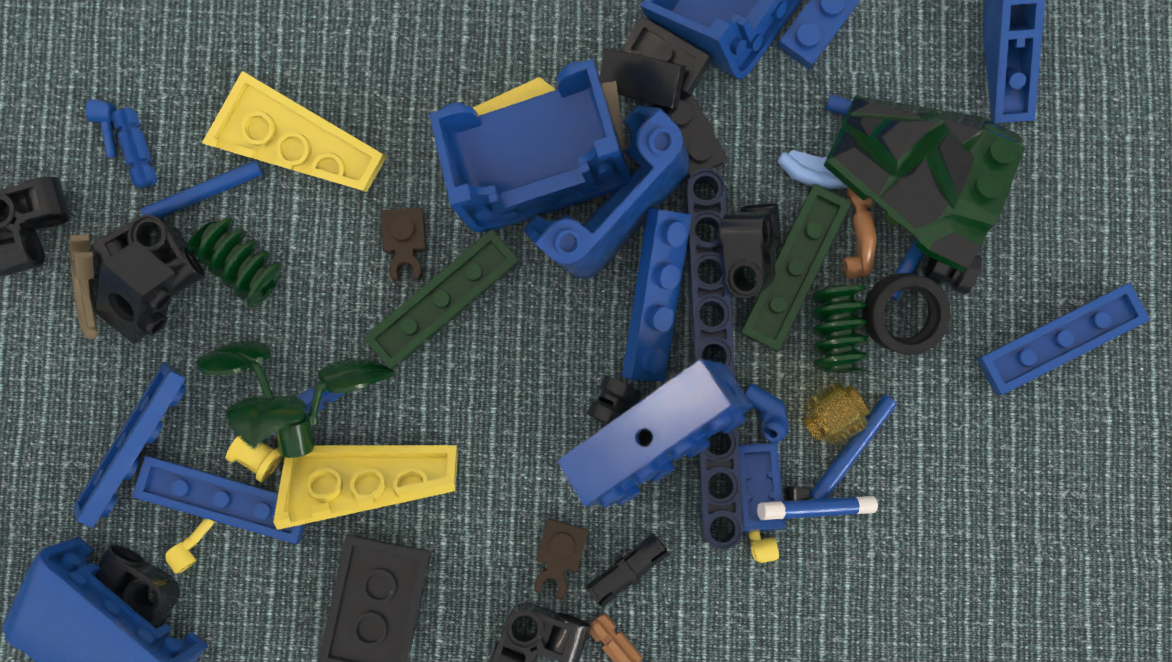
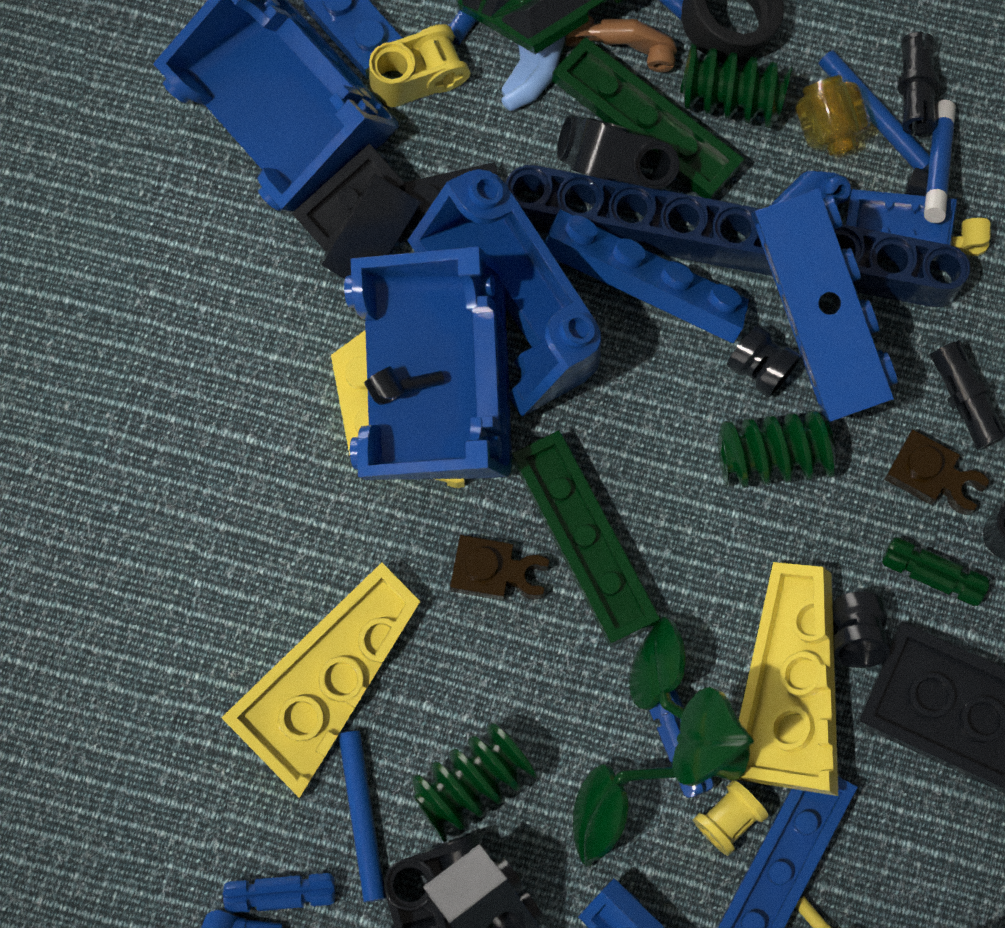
camera: 75 degrees left, 10 degrees down
(415, 521) = (860, 630): none -> black wheel
(480, 572) = (936, 571): none -> dark green axle
(509, 118) = (386, 387): none -> black hand
(542, 426) = (776, 448): none -> dark green piece
(794, 81) = (421, 64): none -> light yellow piece
(884, 477) = (918, 83): none -> black pin

